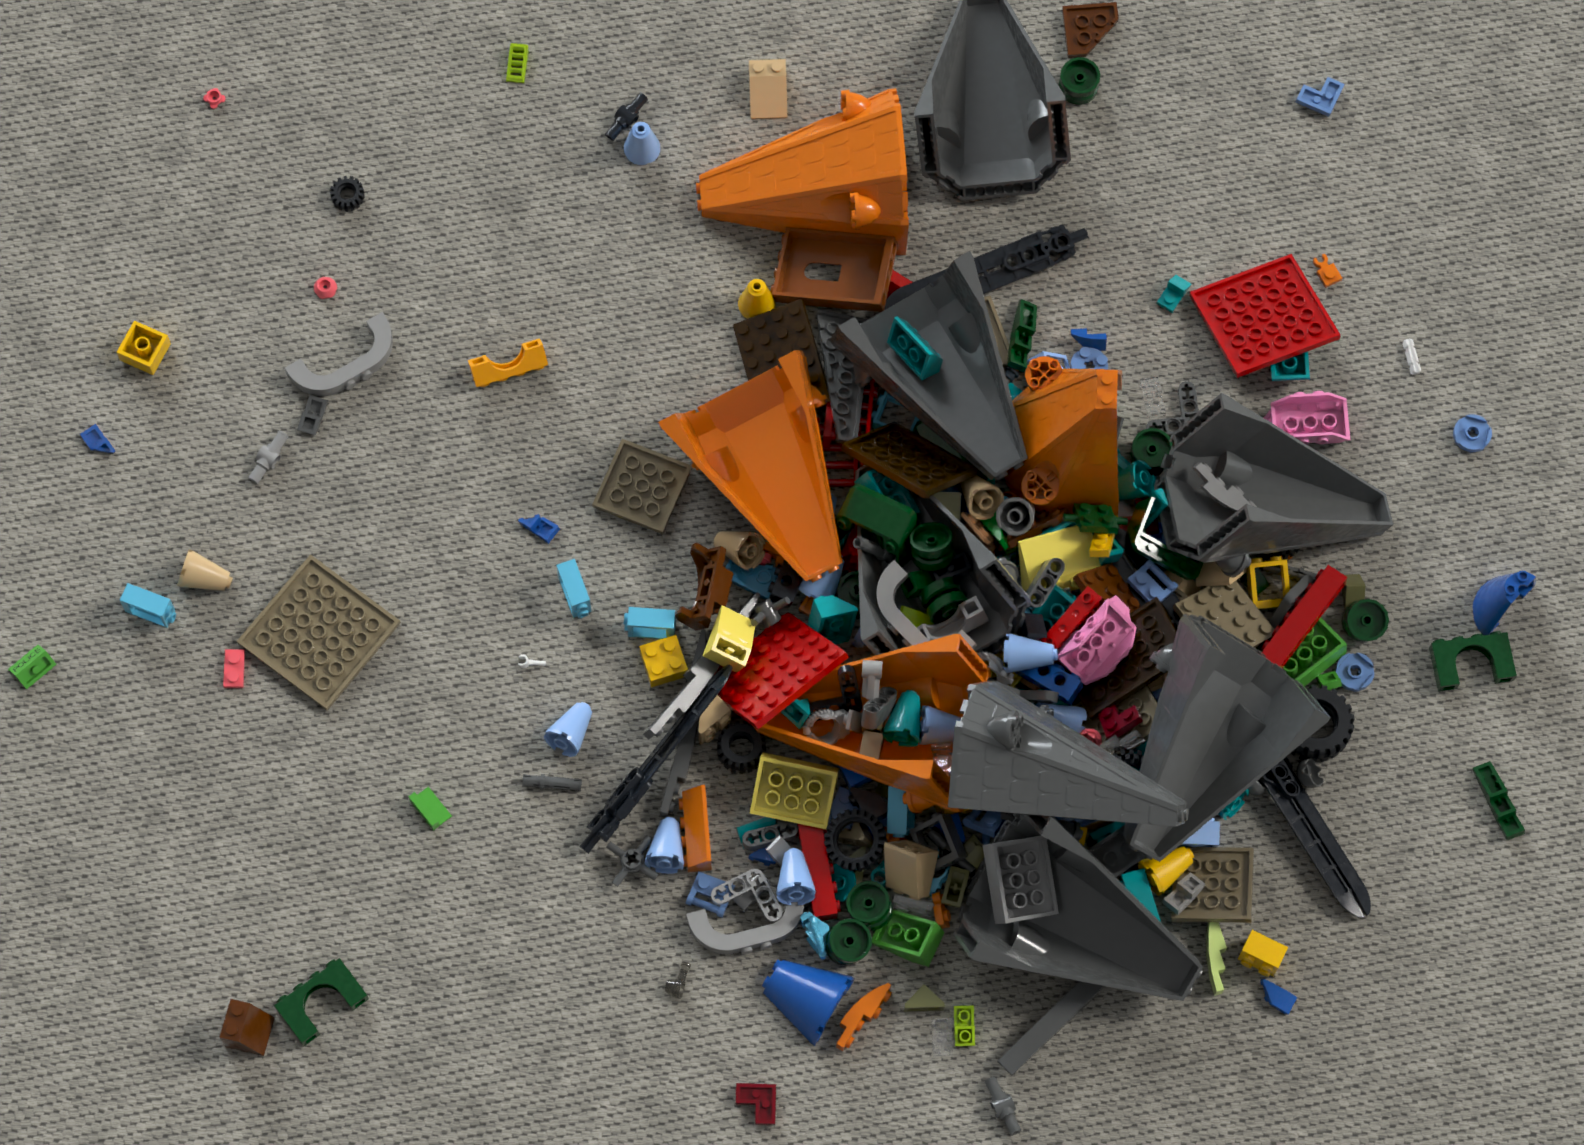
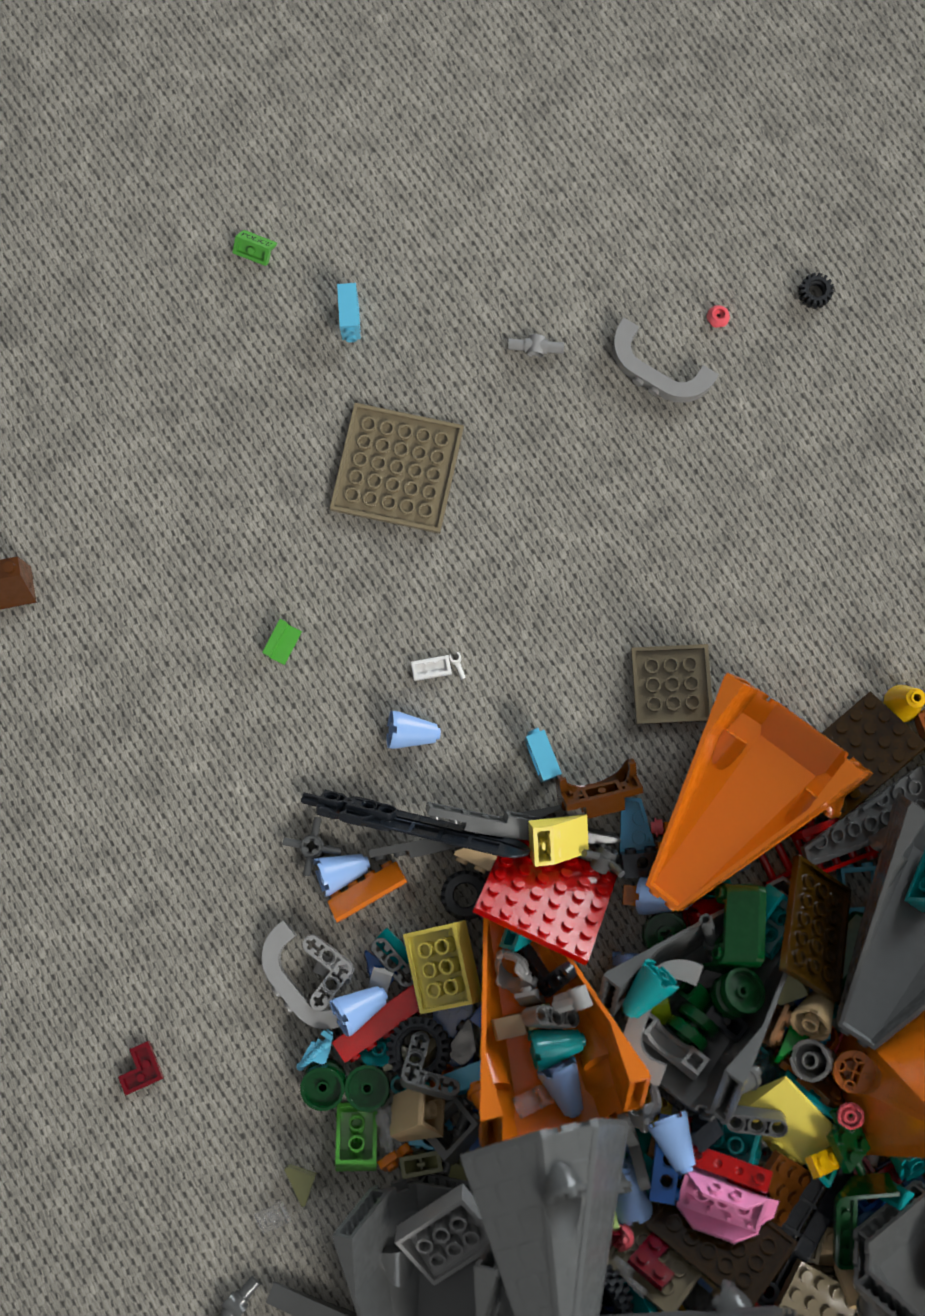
camera: 65 degrees right, 10 degrees up
(96, 440) = (481, 197): blue slope -> none
(143, 347) = (582, 191): yellow brick -> none
(203, 574) = (401, 343): tan cone -> none
(211, 94) = (847, 131): coral plate -> none
(234, 668) = (331, 413): coral plate -> none
(313, 415) = (593, 365): dark grey slope -> none
(333, 976) = (47, 614): dark green arch -> none
(521, 686) = (431, 668): none -> white plate
(530, 357) = (710, 493): light orange arch -> none
(540, 527) = (588, 612): blue slope -> none
(551, 782) = (354, 738): dark grey pin -> none
(574, 588) = (541, 670): medium azure window -> none
(663, 660) = (513, 784): yellow brick -> none
(673, 985) = (214, 939): clear smoke bar -> none
(704, 885) = (321, 926): medium blue plate -> none
(742, 547) = (654, 804): tan cone -> none
(806, 995) = (260, 1069): blue cone -> none
(832, 618) = (624, 923): teal slope -> none
(867, 1008) = (271, 1129): orange slope -> none
(892, 612) = (648, 989): none -> teal cone
(898, 821) = (420, 1076): none -> dark grey beam
(964, 1025) = (296, 1230): lime slope -> none
(1073, 497) = (850, 1122): none -> coral plate
(1147, 586) = (806, 1222): medium blue plate -> none

